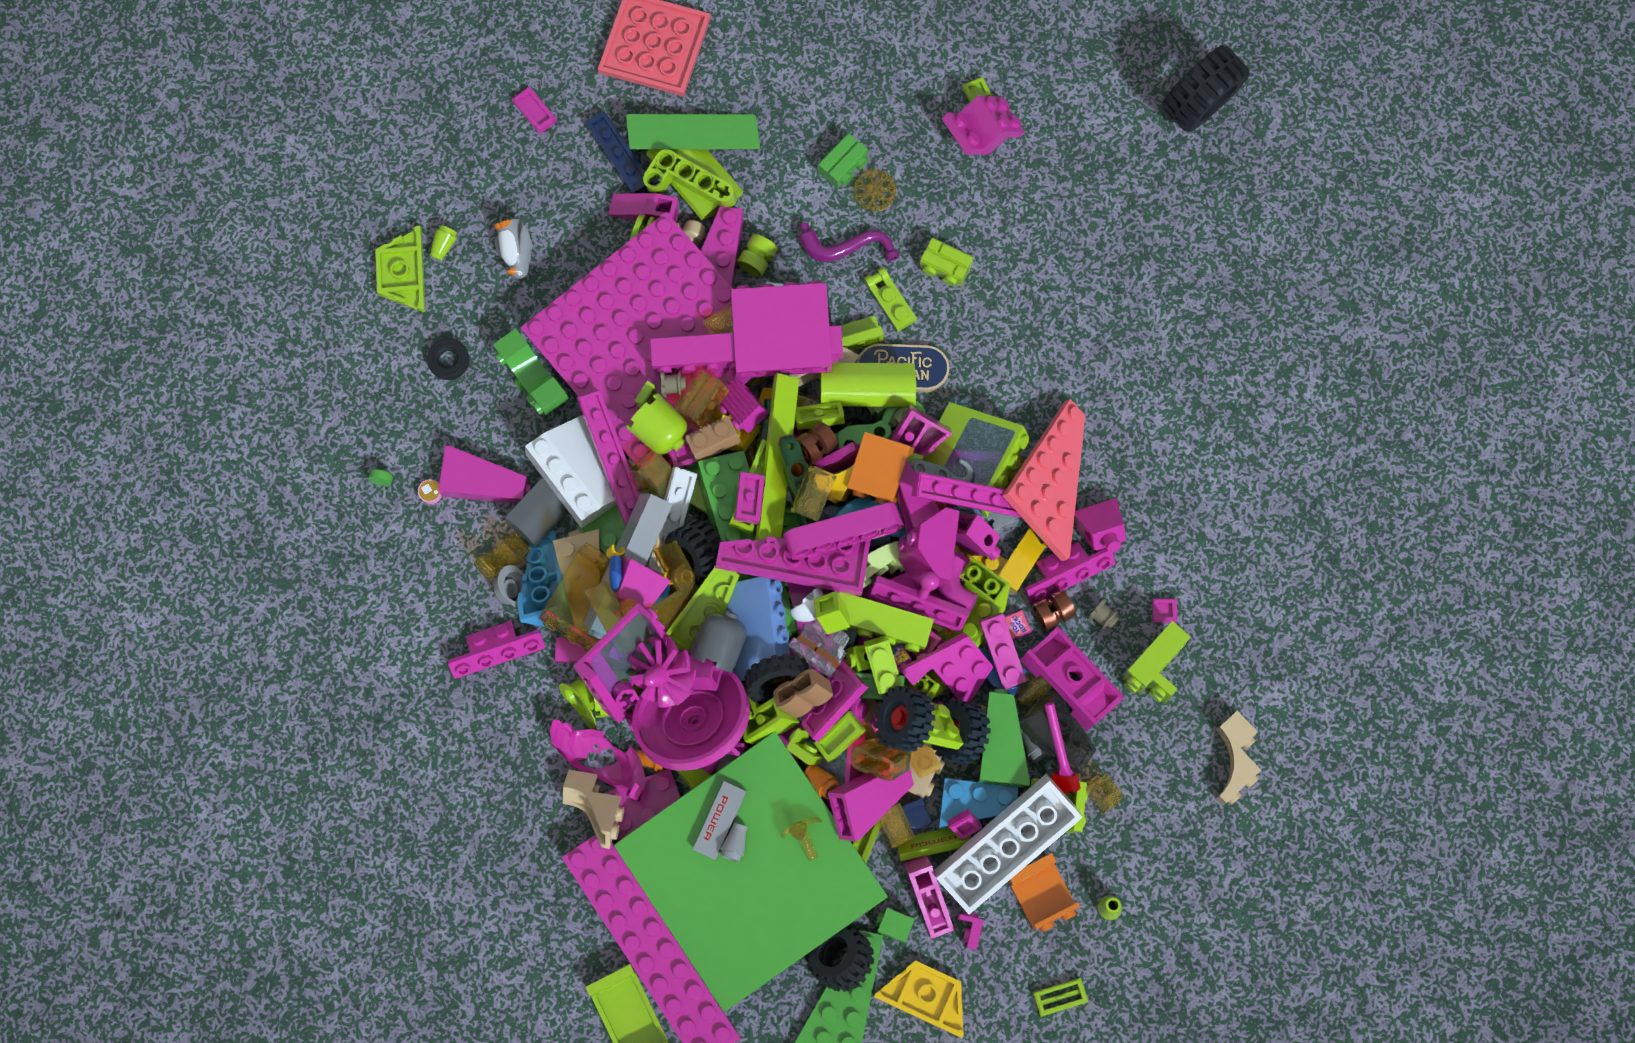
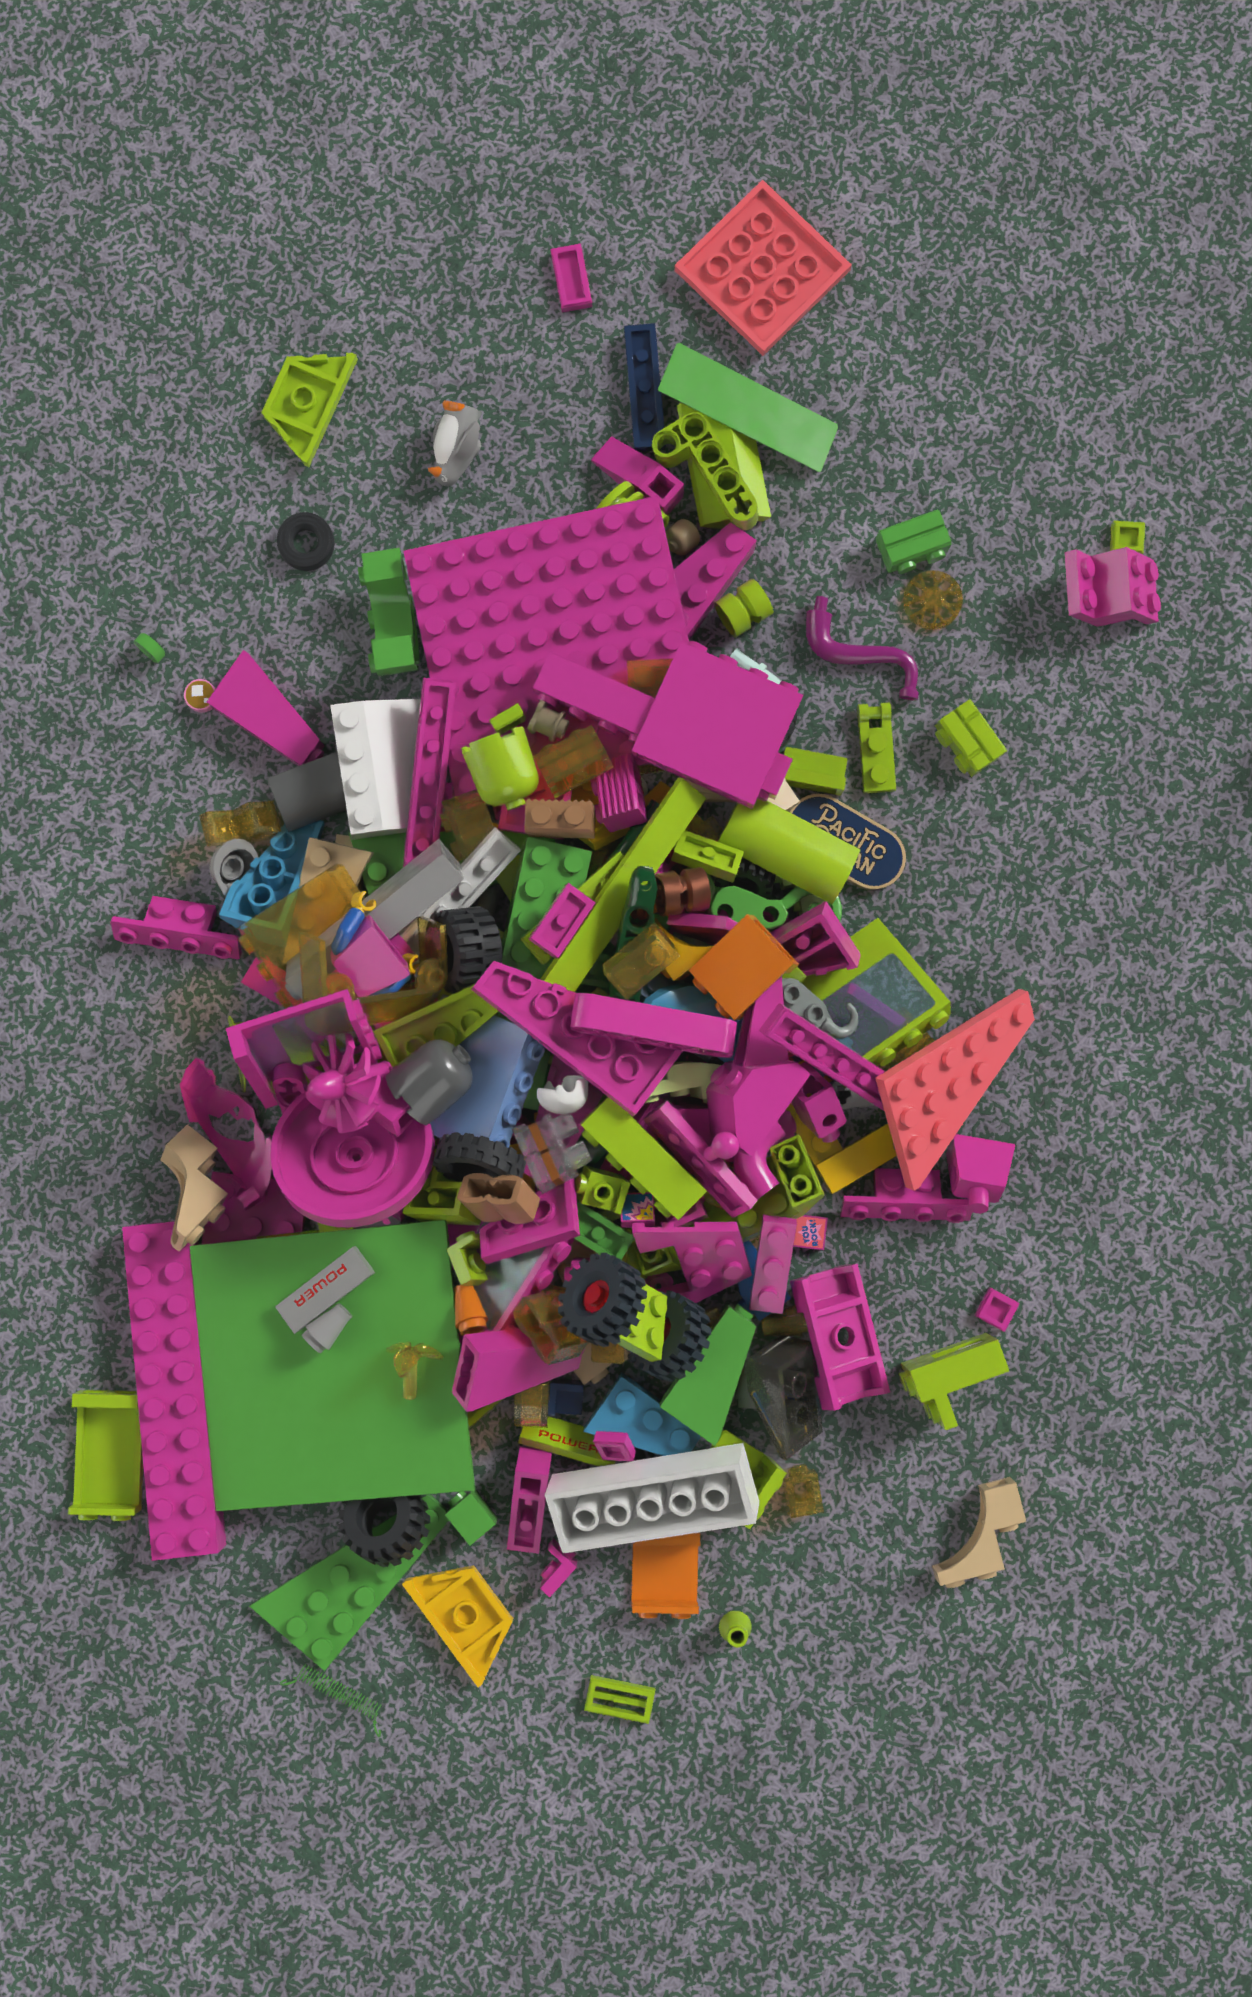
camera: 25 degrees right, 10 degrees up
(442, 242) = (372, 390): lime cone -> none
(832, 612) = (583, 1122): lime panel -> none
(840, 736) = (519, 1271): lime tile -> none
(882, 663) = (613, 1215): lime brick -> none
(1061, 606) = (876, 1240): copper wheel -> none
(1064, 778) = (763, 1455): dark pink piece -> none
(1104, 615) = (921, 1278): dark tan brick -> none

